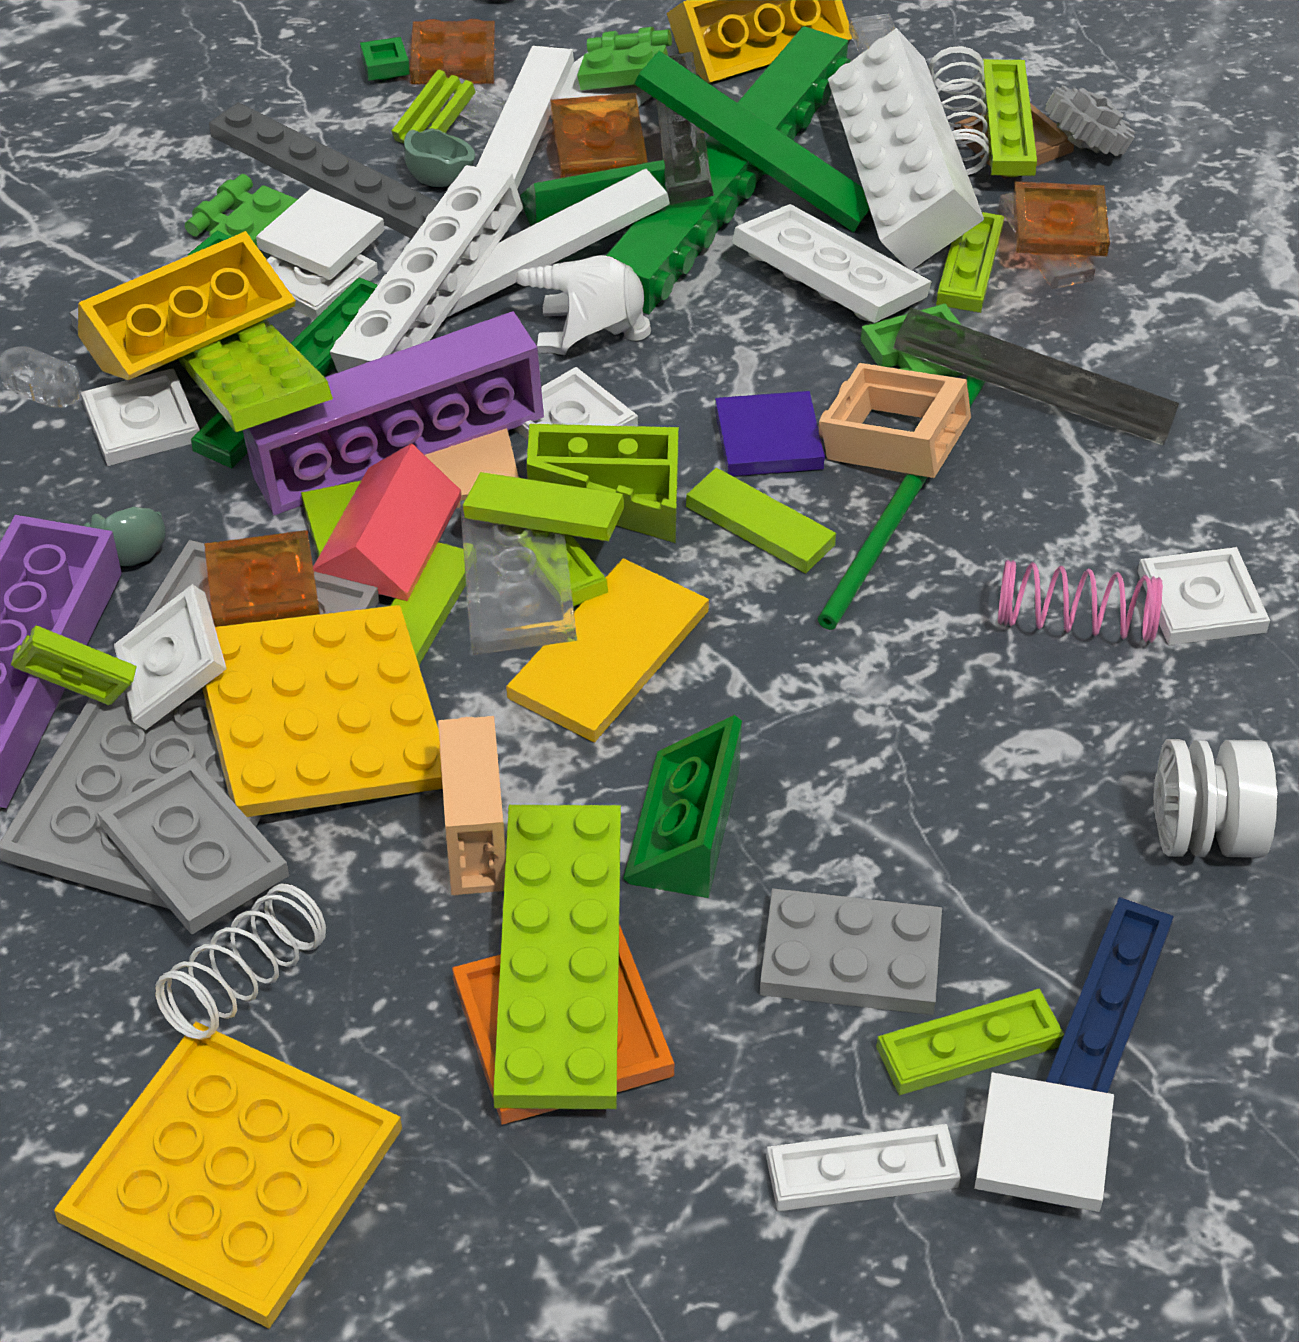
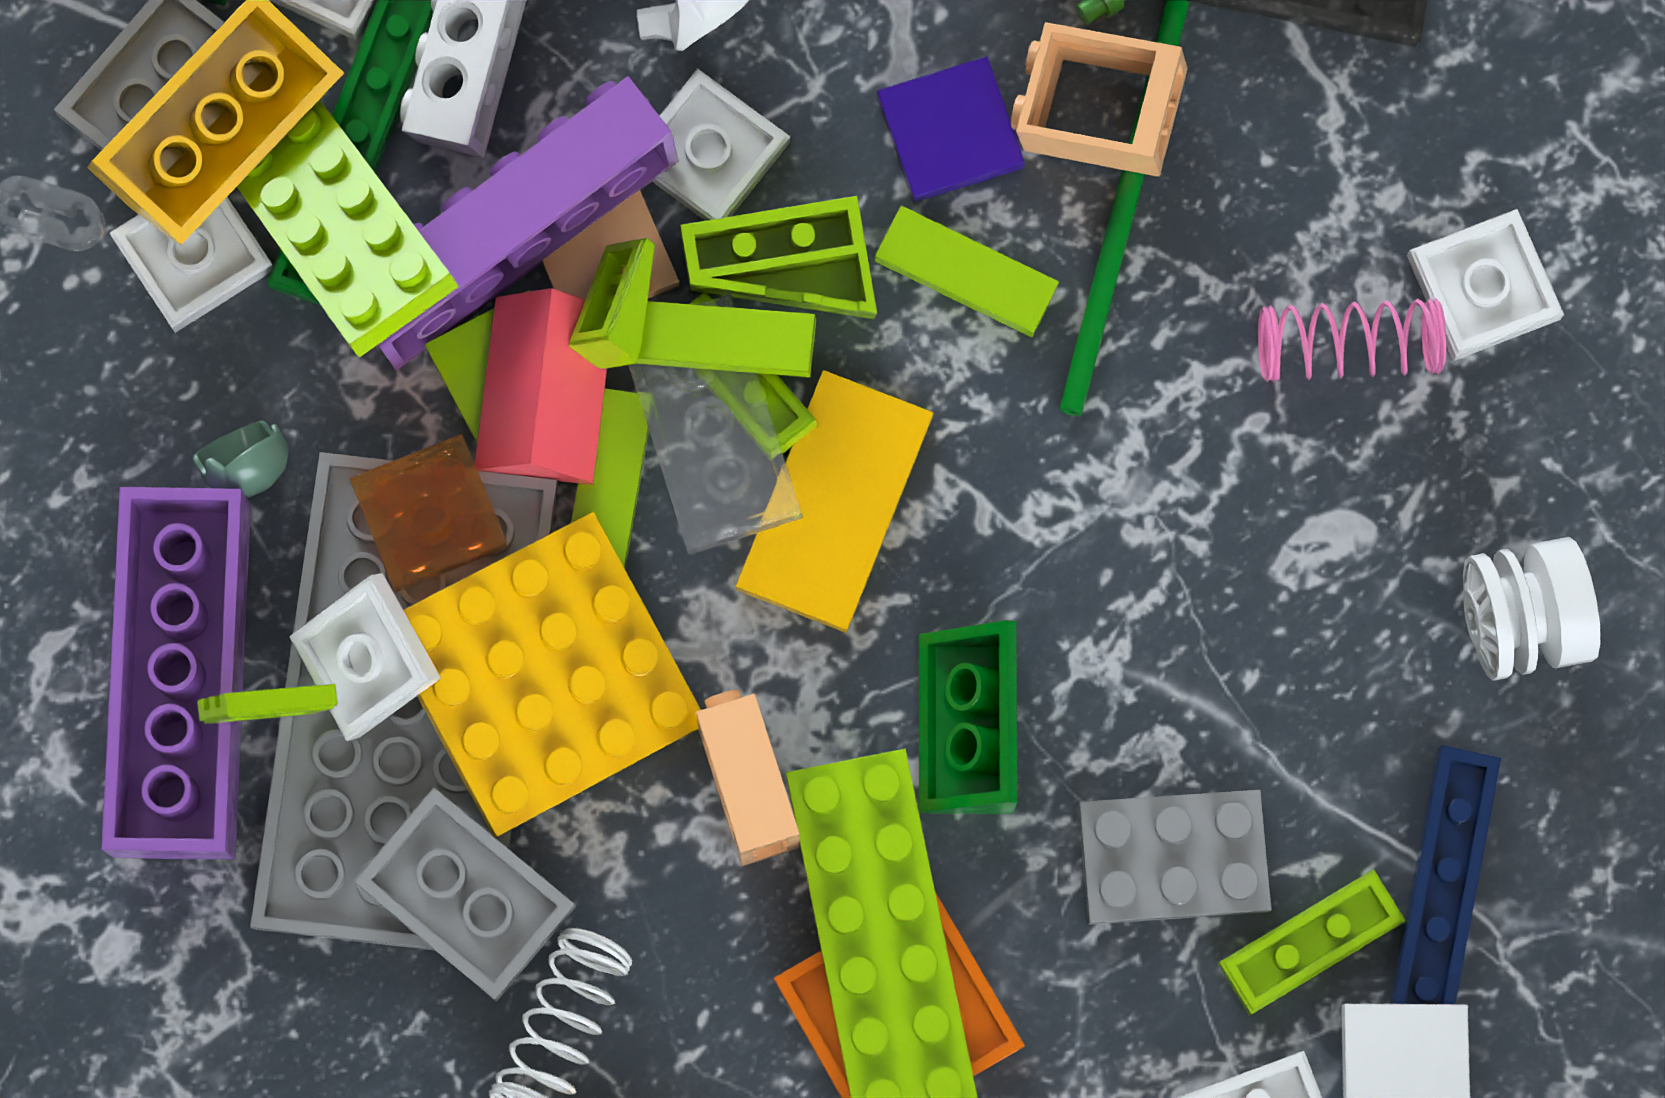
camera: 15 degrees left, 30 degrees up
(459, 475) = (615, 307): none -> lime slope

